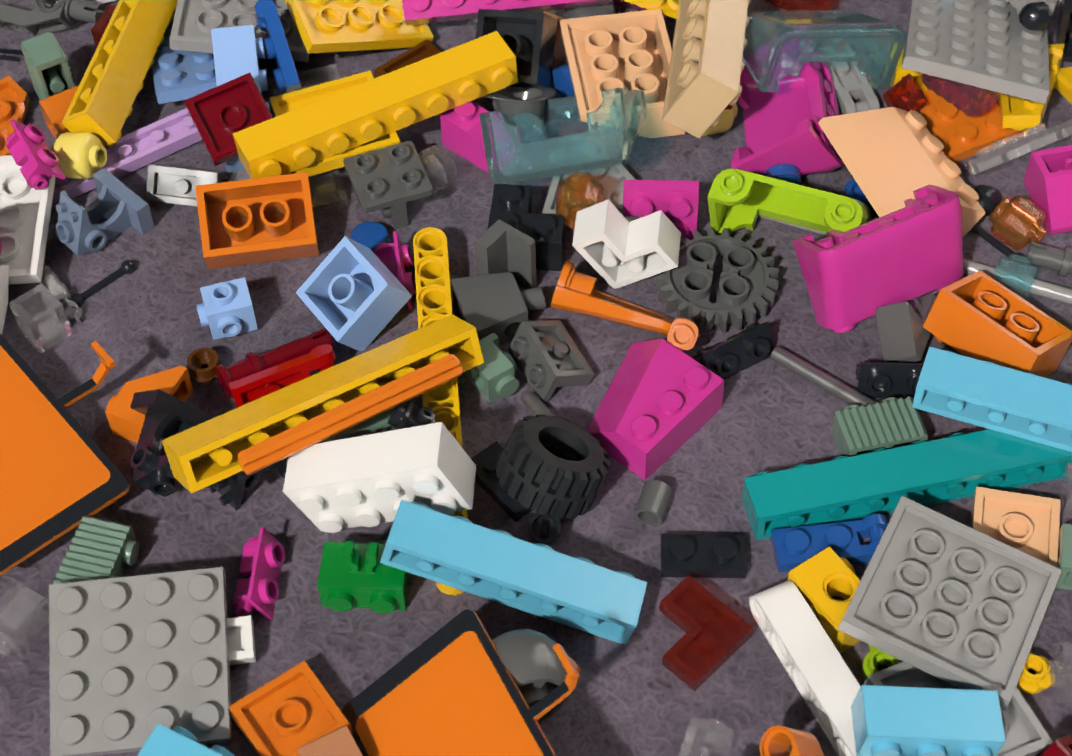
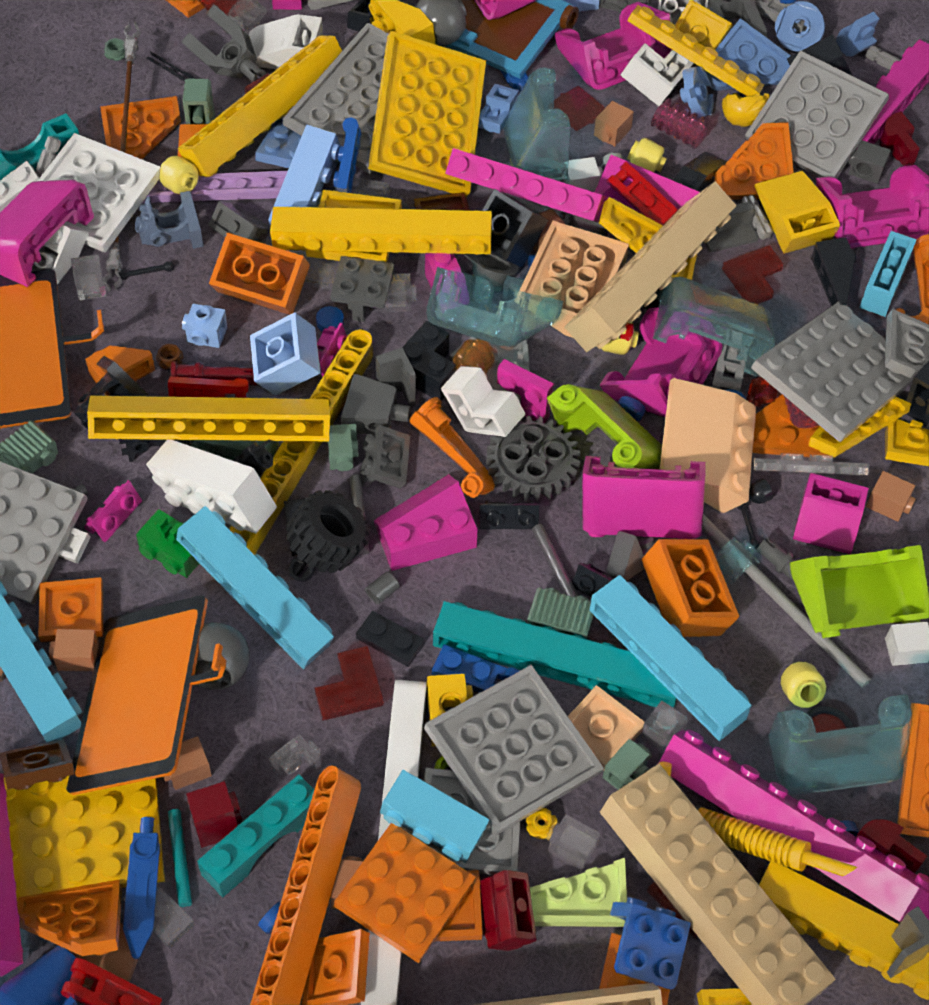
camera: 25 degrees right, 5 degrees up
(33, 155) = (146, 163): dark pink hinge -> none
(224, 112) = (283, 189): dark red plate -> none
(349, 414) = (215, 434): orange axle -> none
(1017, 222) = (770, 518): clear orange head -> none
(1034, 16) = (889, 372): black hinge -> none

